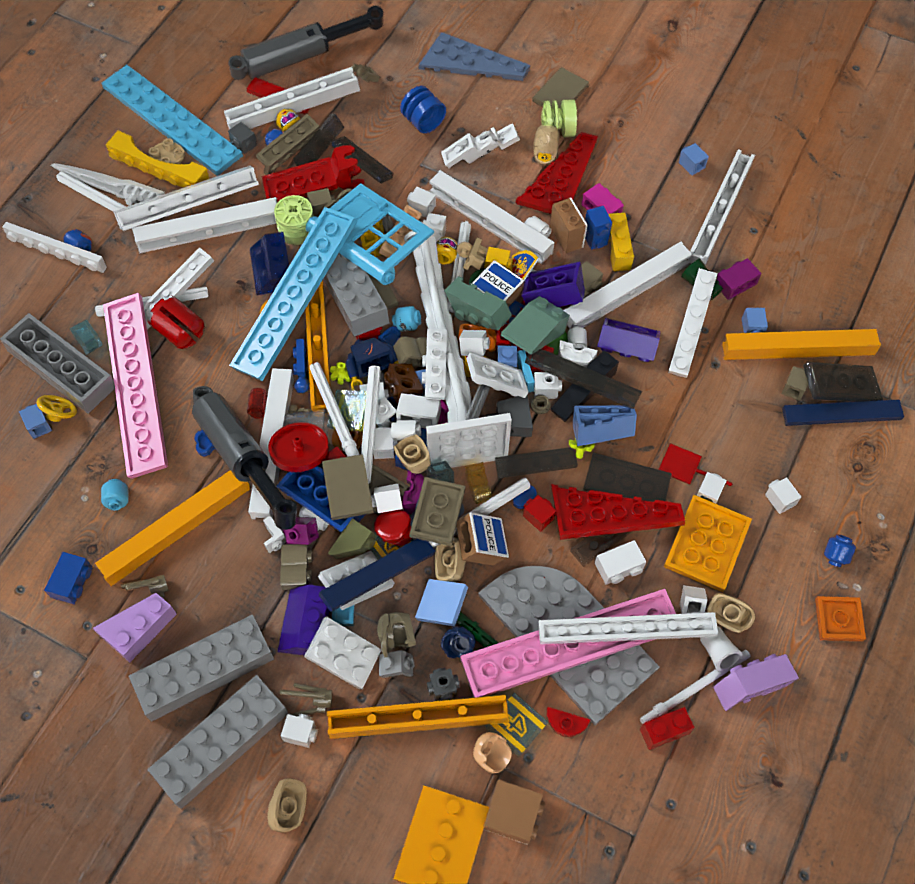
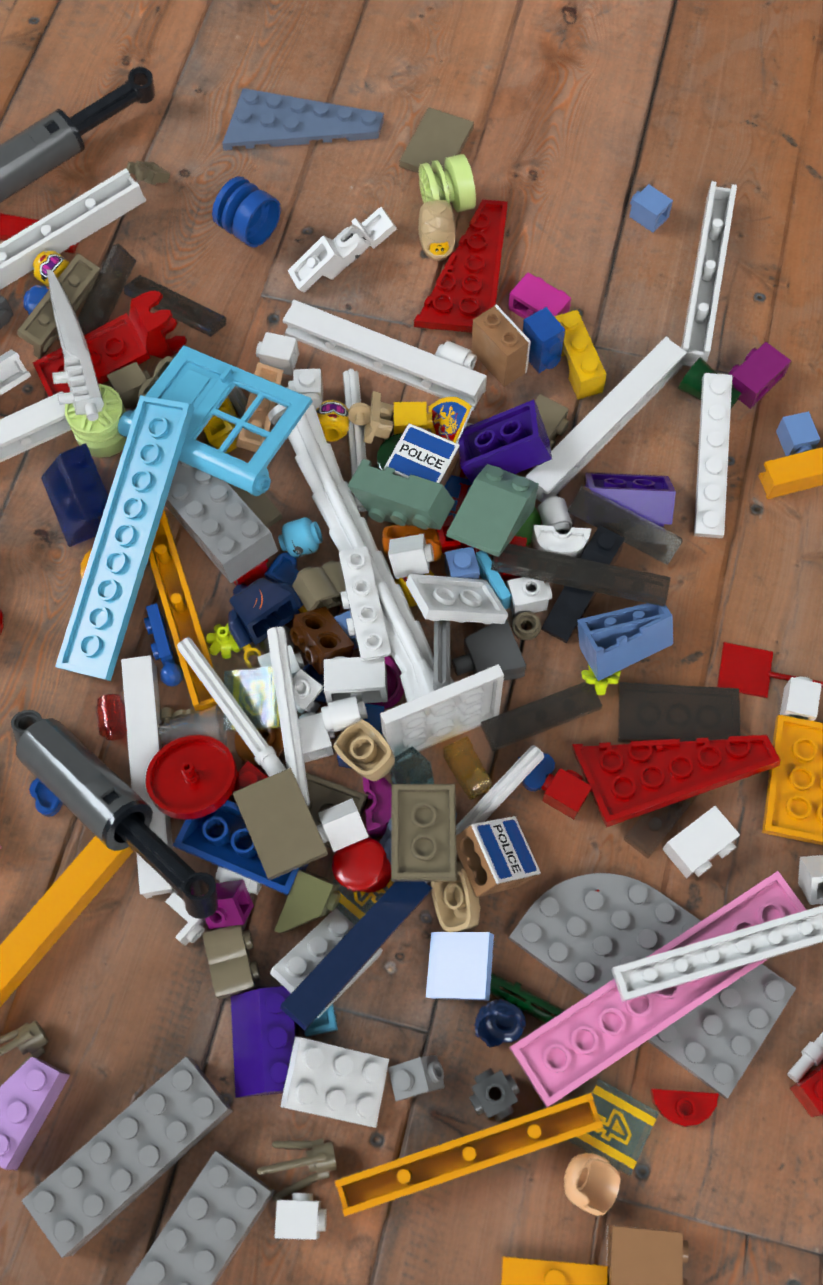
camera: 10 degrees left, 5 degrees up
(290, 179) = (78, 365): none -> white piece
(394, 631) = (402, 1027): dark tan helmet -> none
(627, 358) = (635, 529): none -> clear smoke tile

